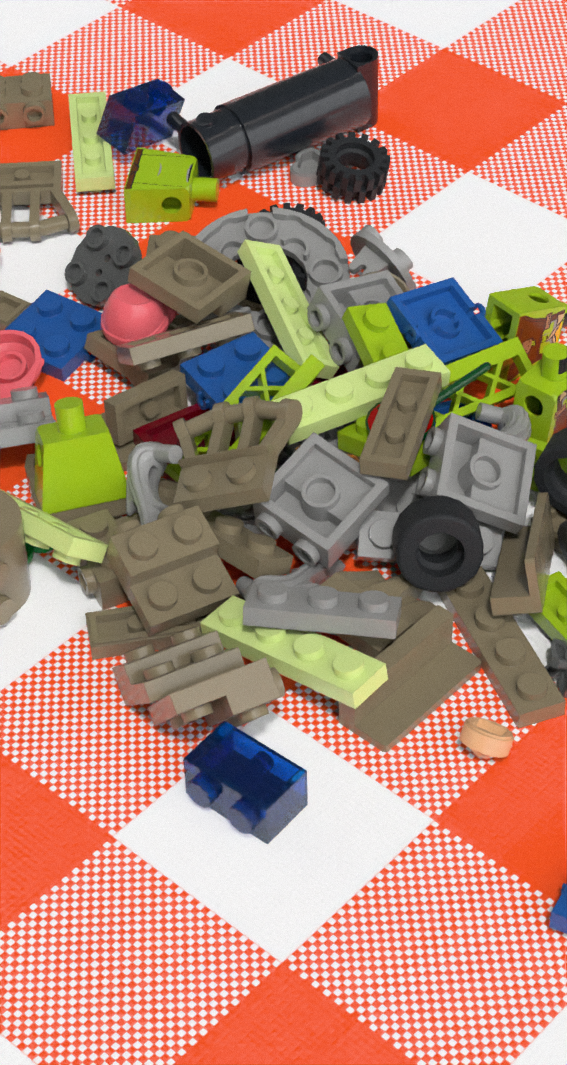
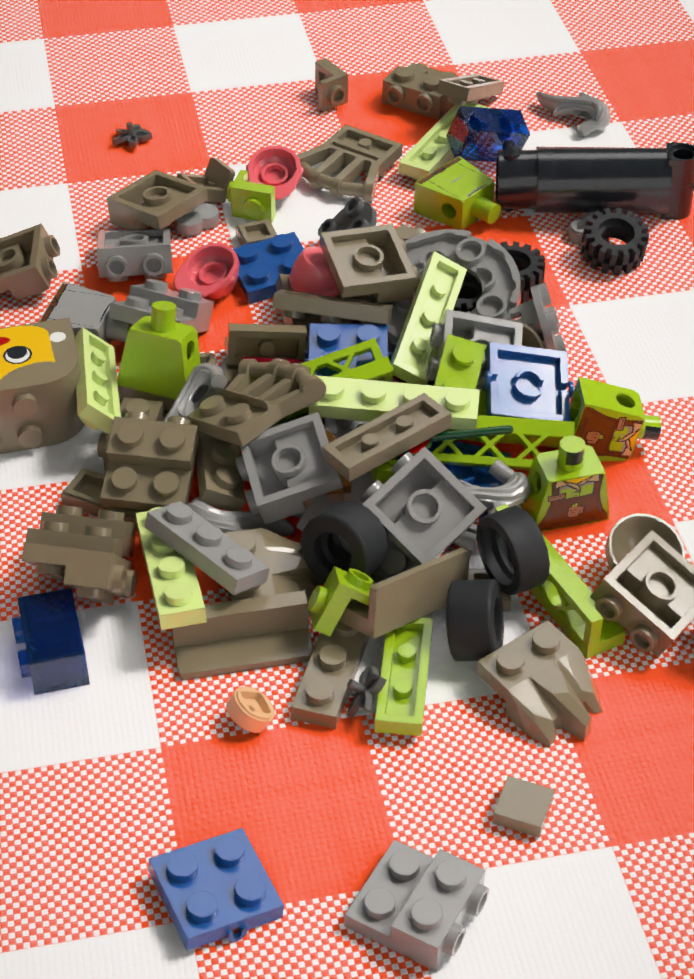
camera: 35 degrees right, 0 degrees up
(74, 80) = (469, 88): none -> dark tan plate
(187, 54) = (585, 106): none -> light grey piece
(479, 594) = (331, 600): none -> lime bracket

